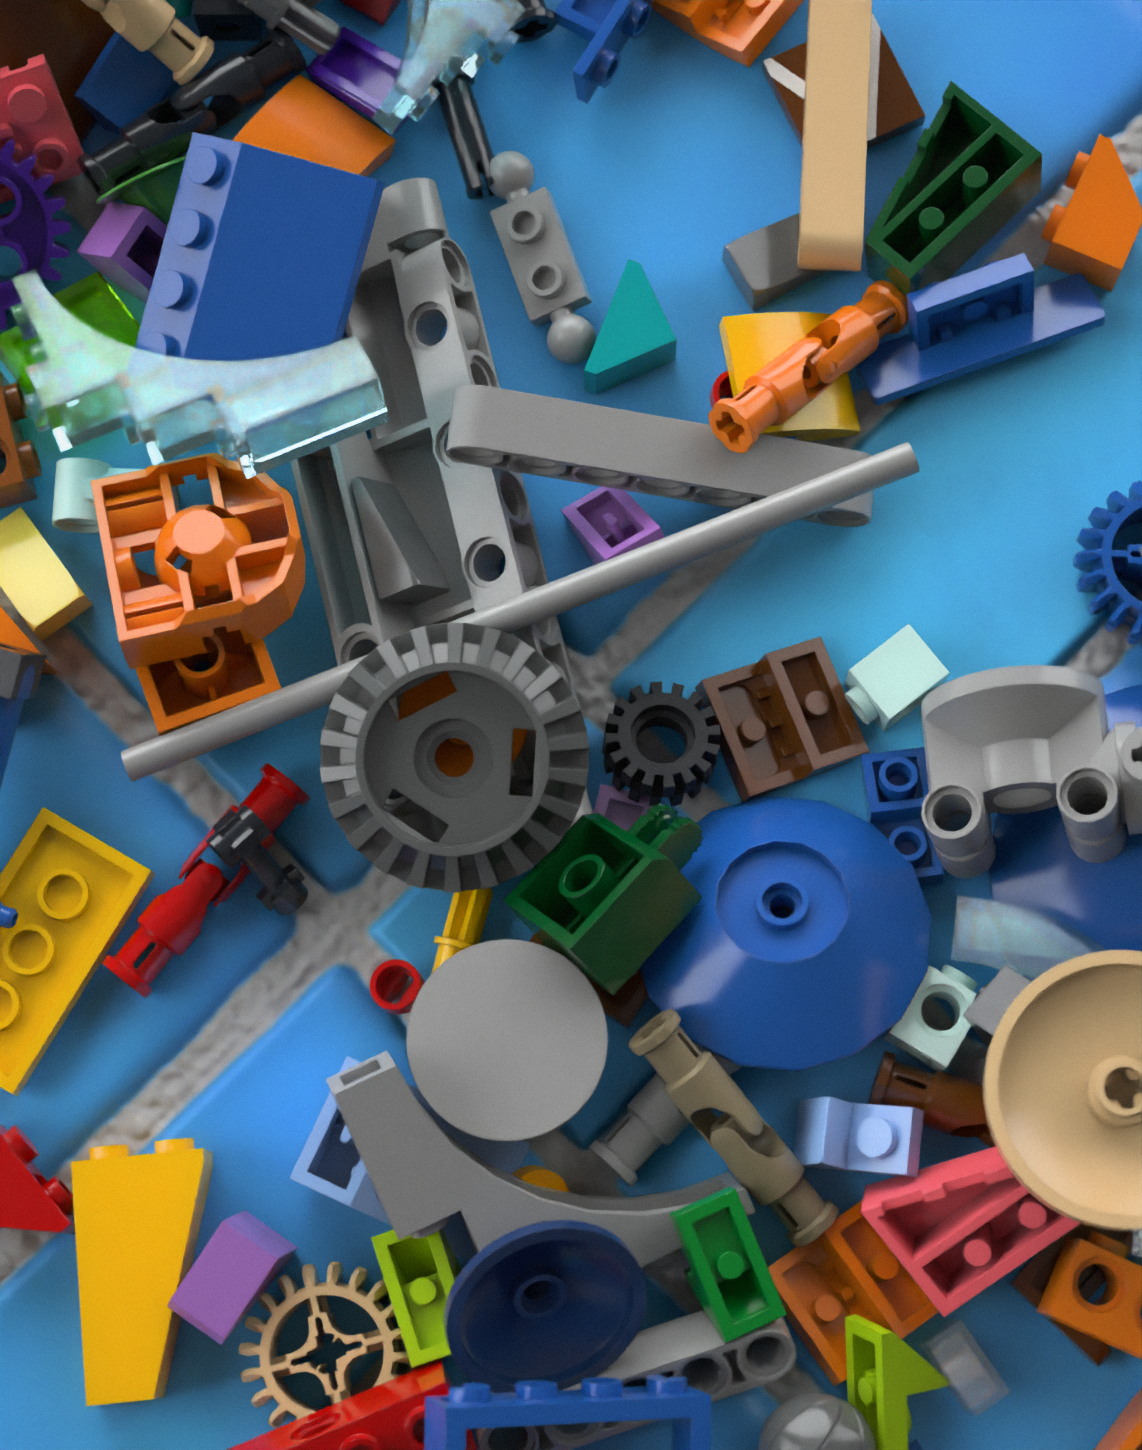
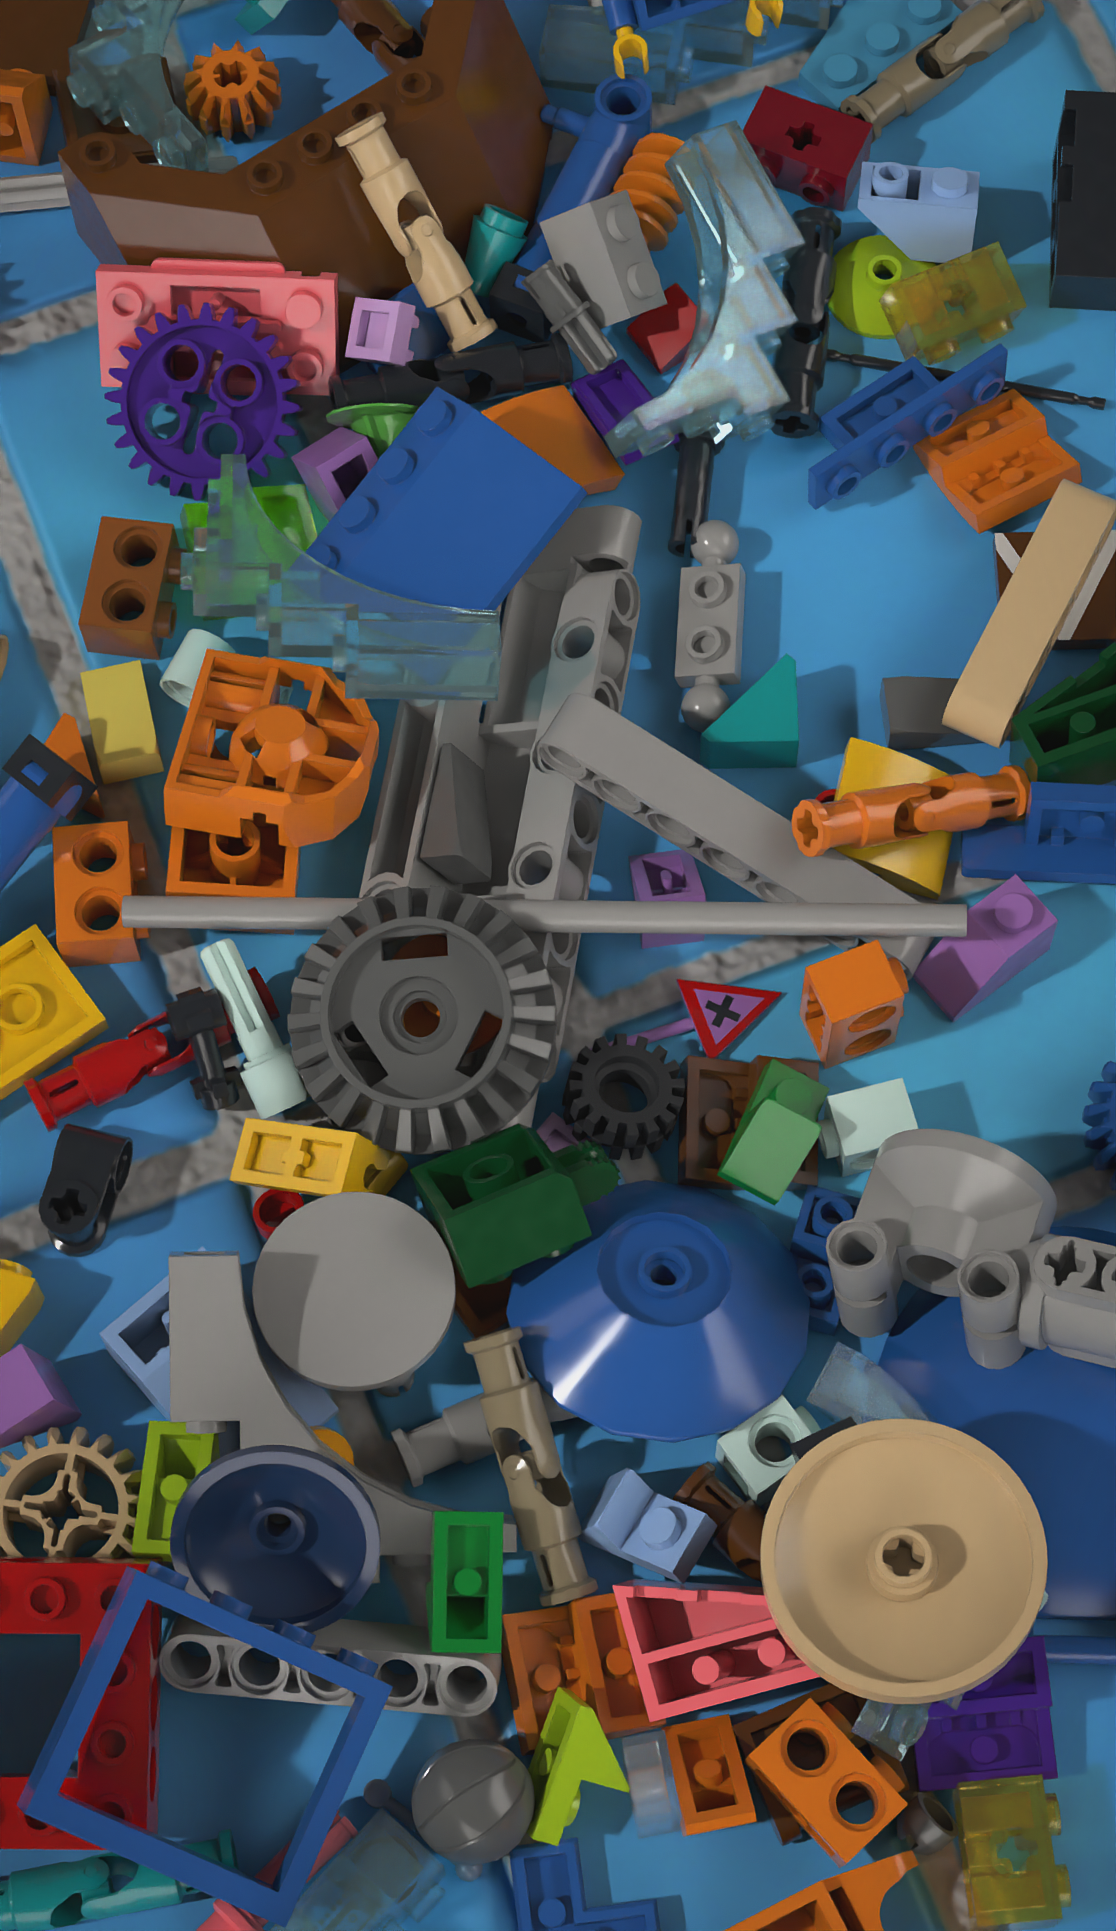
camera: 20 degrees right, 10 degrees down
(77, 759) = (87, 895): none -> orange brick
(108, 94) = (381, 331): none -> lavender tile
(203, 1025) = (84, 1178): none -> black piece
(325, 851) = (270, 1068): none -> light aqua piece
(402, 932) = (304, 1158): none -> yellow hinge
(707, 627) = (715, 1012): none -> piece
(815, 721) = (774, 1132): none -> green slope
(834, 571) = (853, 1003): none -> orange brick
(942, 443) = (1002, 939): none -> medium lavender slope
(1016, 1341) = (709, 1776): none -> orange slope

